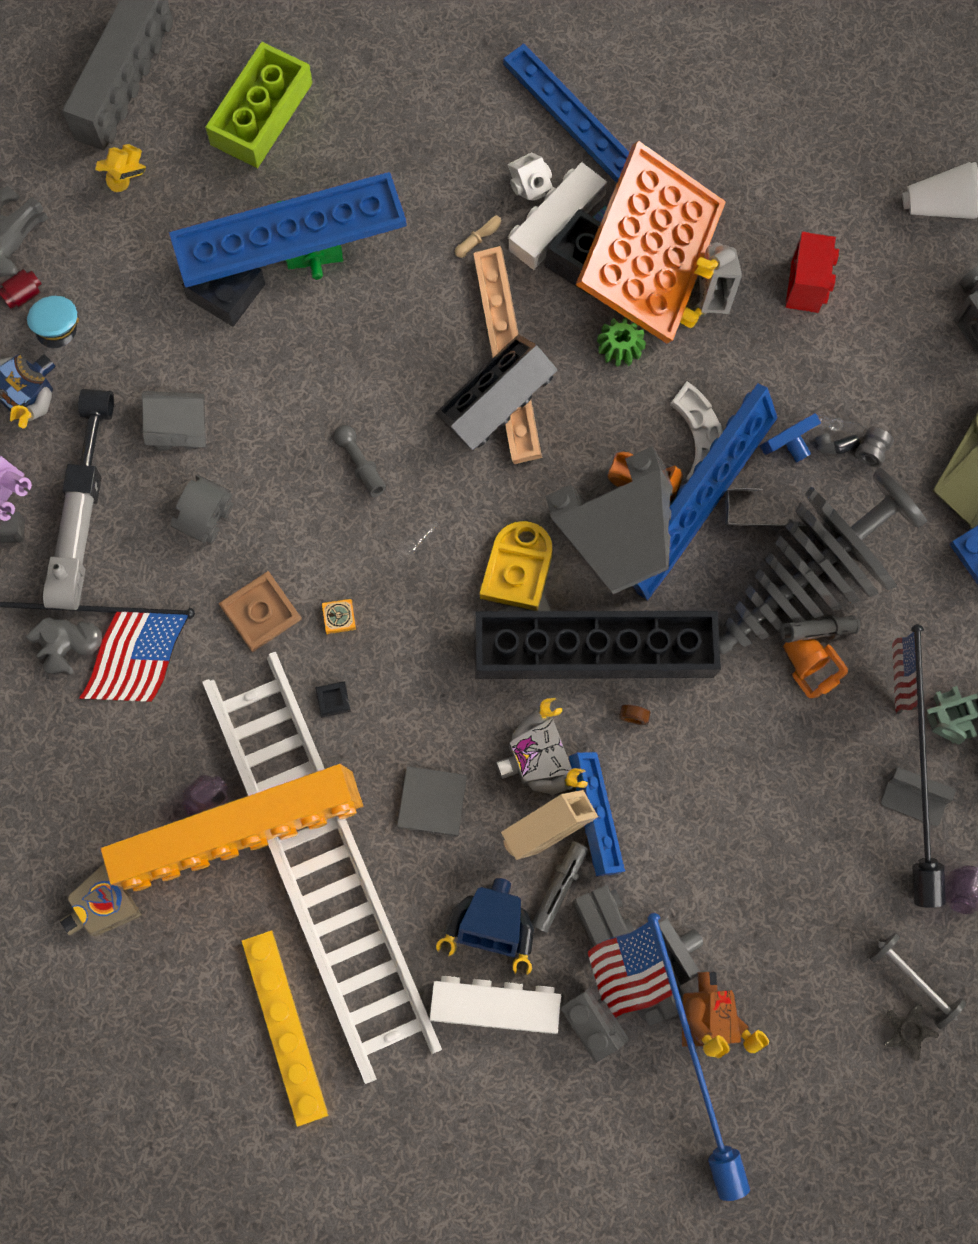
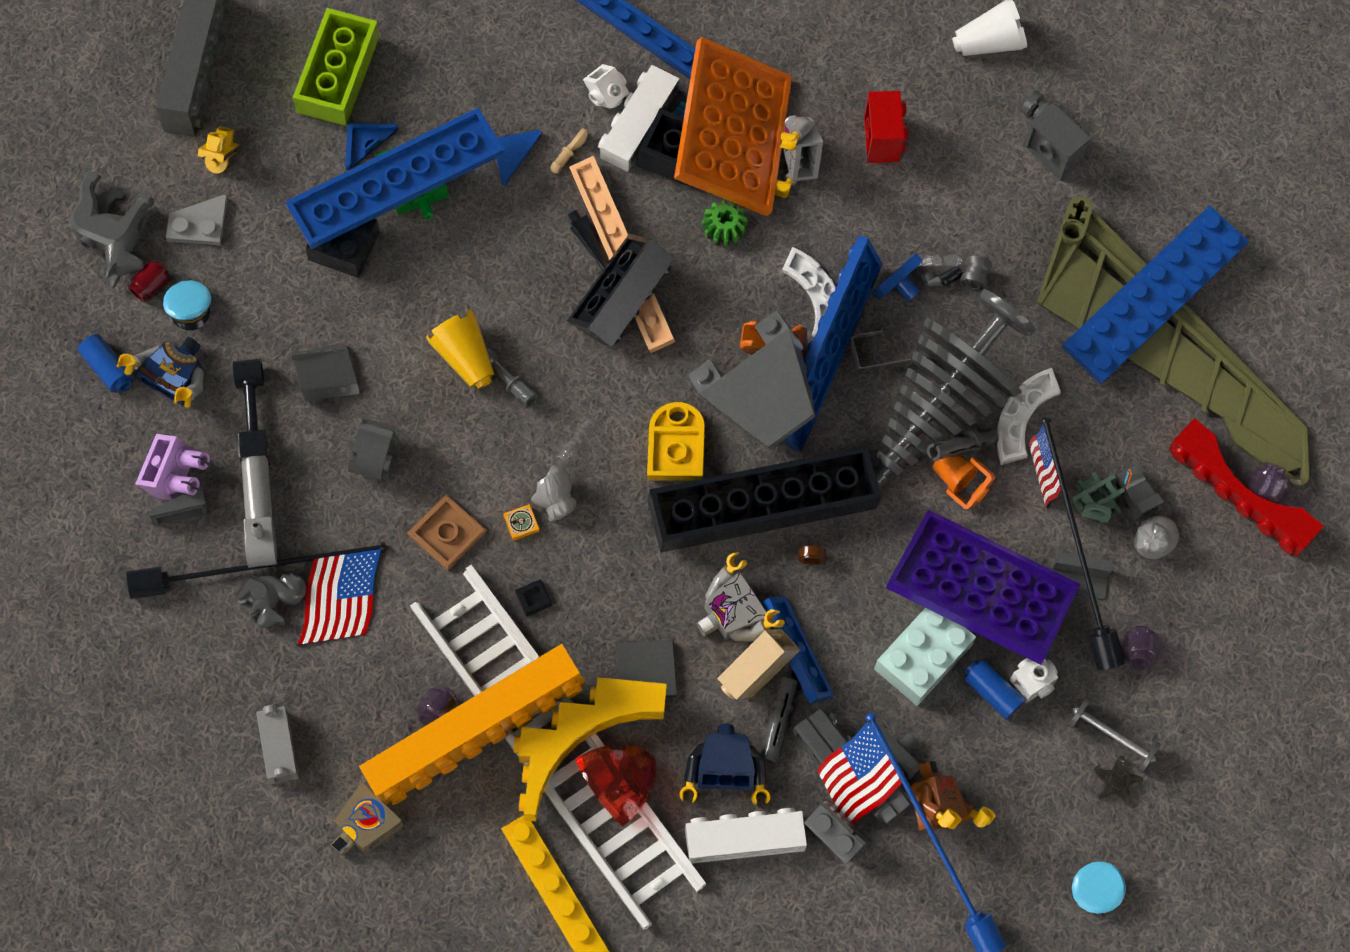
camera: 15 degrees left, 5 degrees down
(31, 800) = (277, 744): none -> light grey brick
(85, 239) = (198, 223): none -> light grey wing
(273, 184) = (364, 138): none -> blue tile
(304, 869) = (544, 749): none -> yellow arch
(320, 421) = (463, 349): none -> yellow cone
(374, 917) = (619, 779): none -> clear red brick
(379, 593) = (554, 493): none -> light grey hair
(420, 227) = (516, 150): none -> blue tile
(472, 320) = (583, 231): none -> black piece
(731, 846) = (924, 654): none -> light aqua brick
(797, 901) = (994, 688): none -> blue brick
(810, 790) = (983, 586): none -> dark purple plate
(837, 907) = (1034, 679): none -> white brick
(865, 1148) = (1099, 887): none -> medium azure piece
(884, 607) = (1017, 412): none -> white tile

